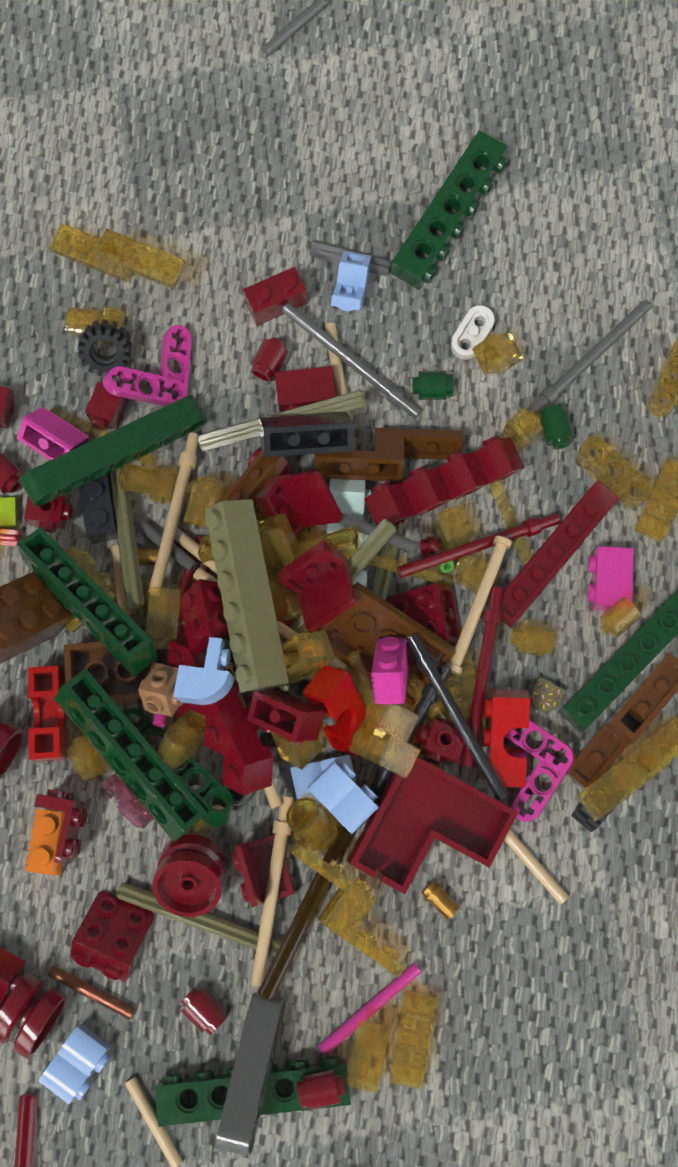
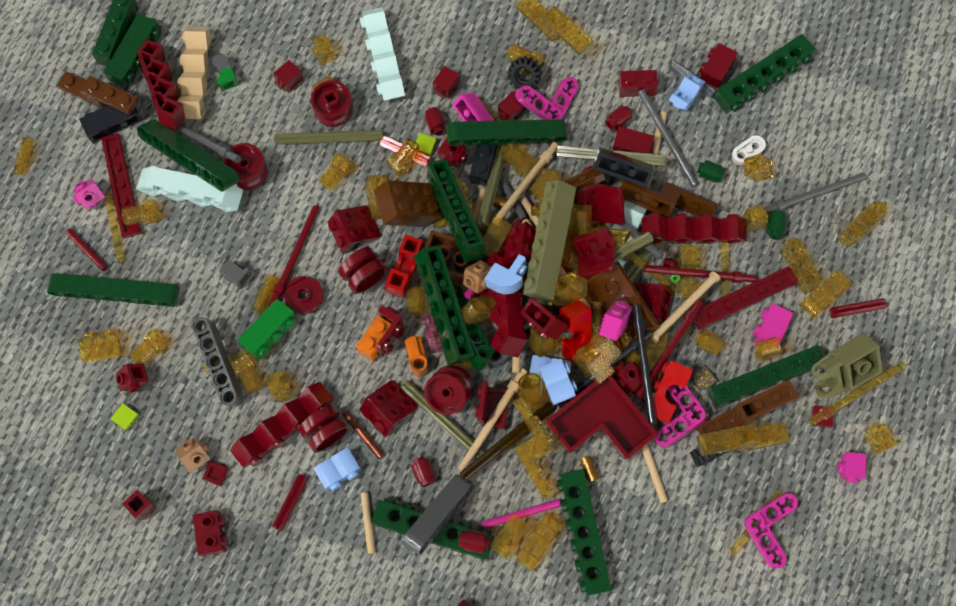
camera: 25 degrees right, 5 degrees down
(119, 838) = (416, 355): none -> orange piece
(379, 223) = (718, 65): none -> dark red brick
(525, 1064) = (577, 480): none -> dark green brick

